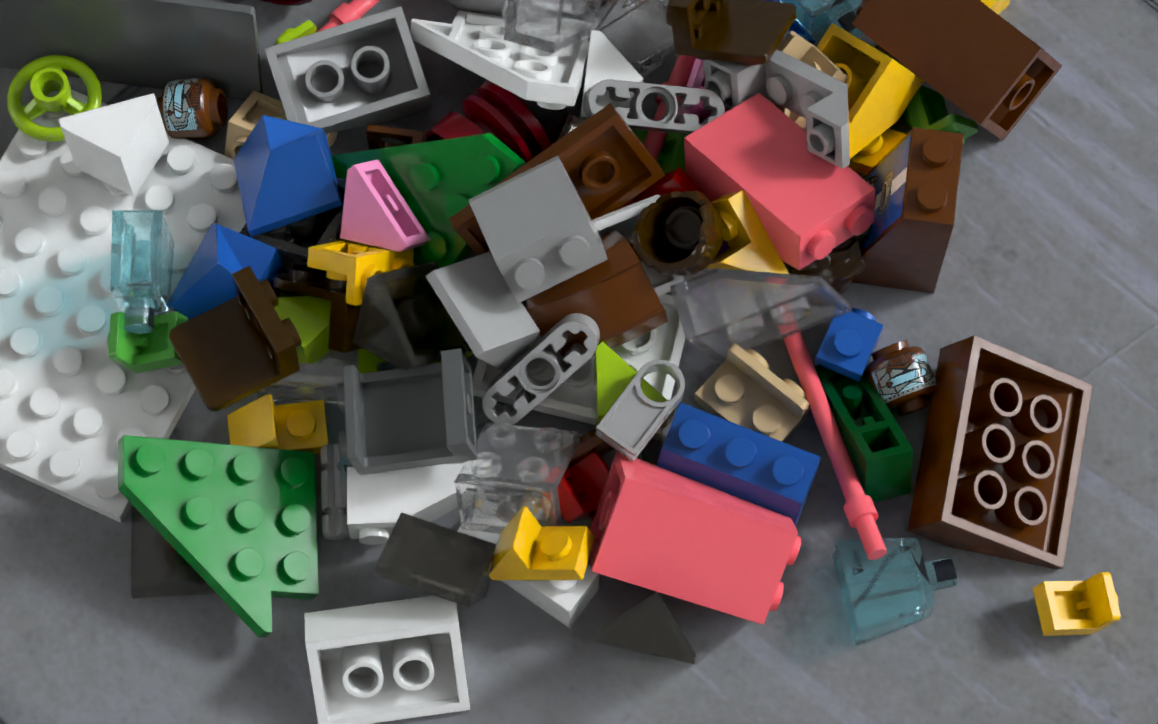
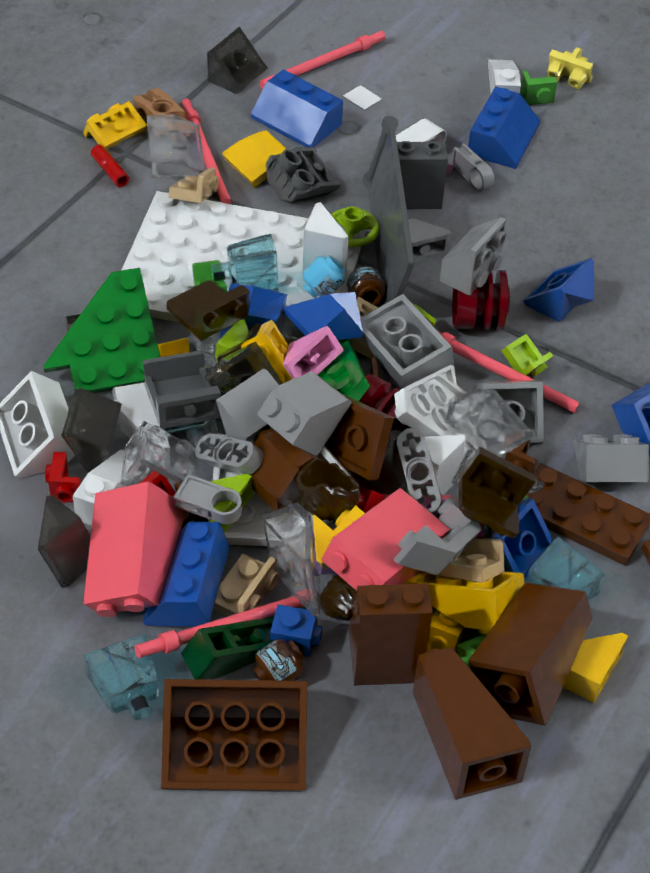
camera: 75 degrees right, 20 degrees down
(184, 161) = (323, 276): none -> medium azure head
(498, 639) = (57, 477): none -> red bracket
(539, 551) = (107, 465): yellow slope -> none
(1054, 160) = (467, 726): none -> reddish brown slope
(1077, 605) = (128, 791): yellow bracket -> none

